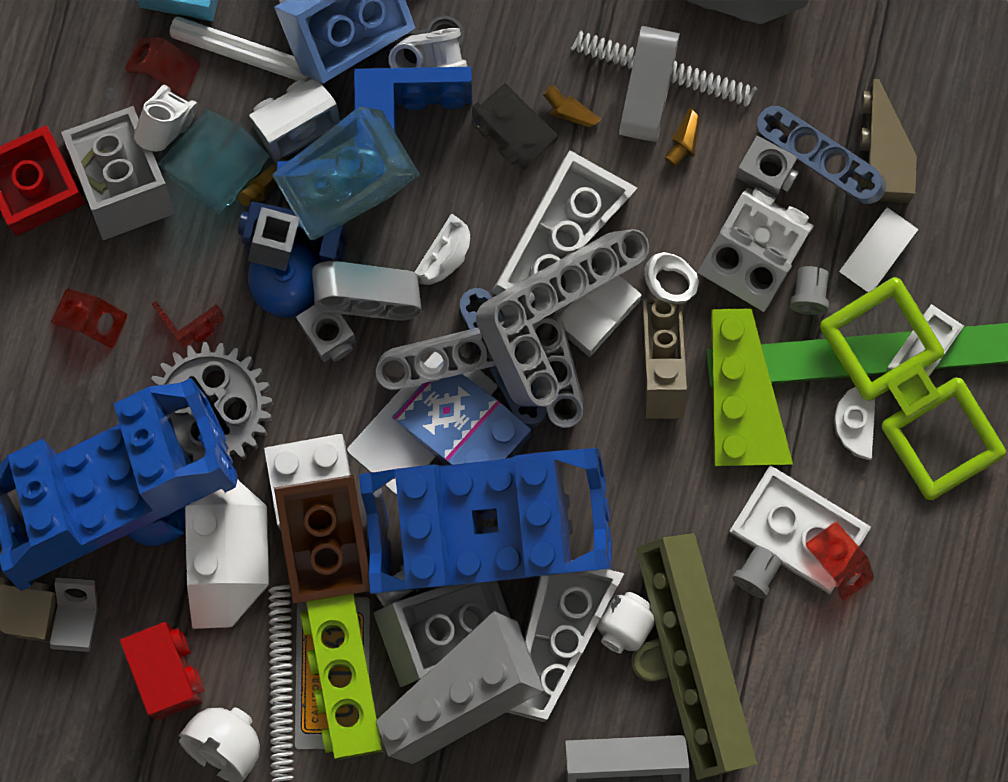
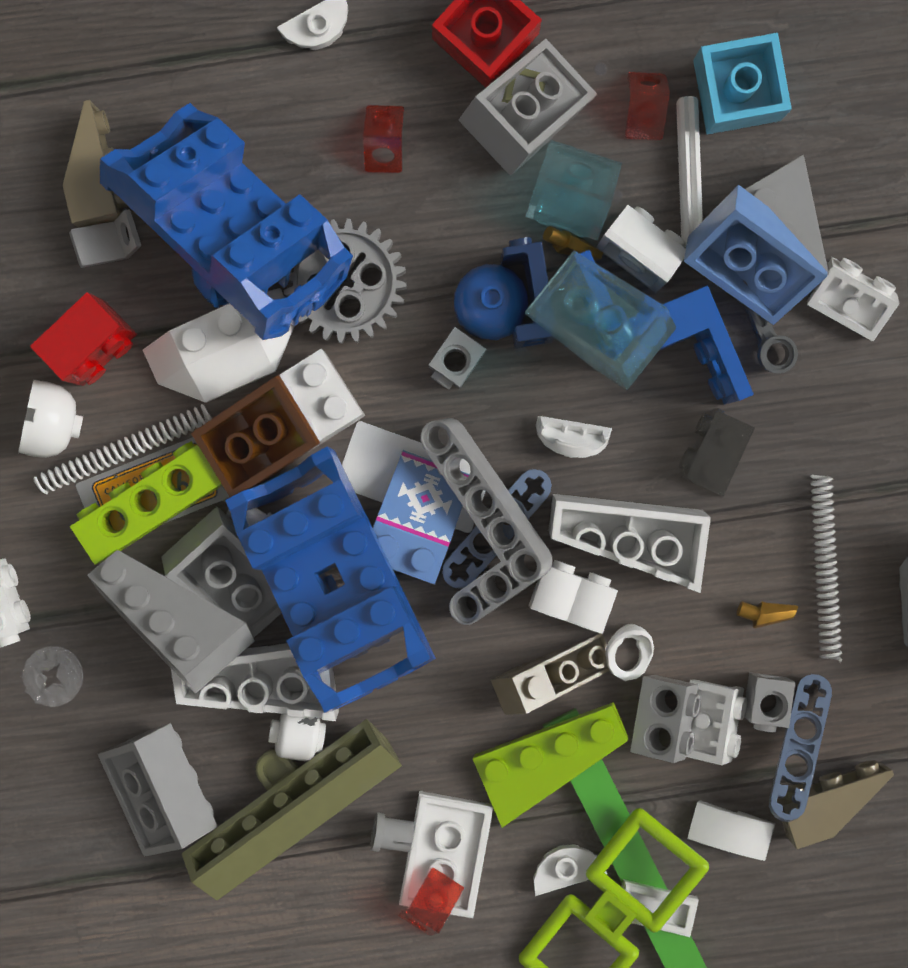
camera: 65 degrees right, 10 degrees up
(163, 119) = (593, 127): white piece -> none
(196, 330) = (409, 241): clear red bracket -> none
(273, 238) = (513, 277): dark grey brick -> none
(366, 290) = (504, 381): light grey beam -> none
(431, 49) = (757, 351): white piece -> none
(549, 298) = (557, 558): light grey beam -> none
(569, 108) = (753, 496): pearl gold bar -> none
(649, 84) = (806, 563): light grey beam -> none
(810, 291) = (668, 784): light grey bush -> none

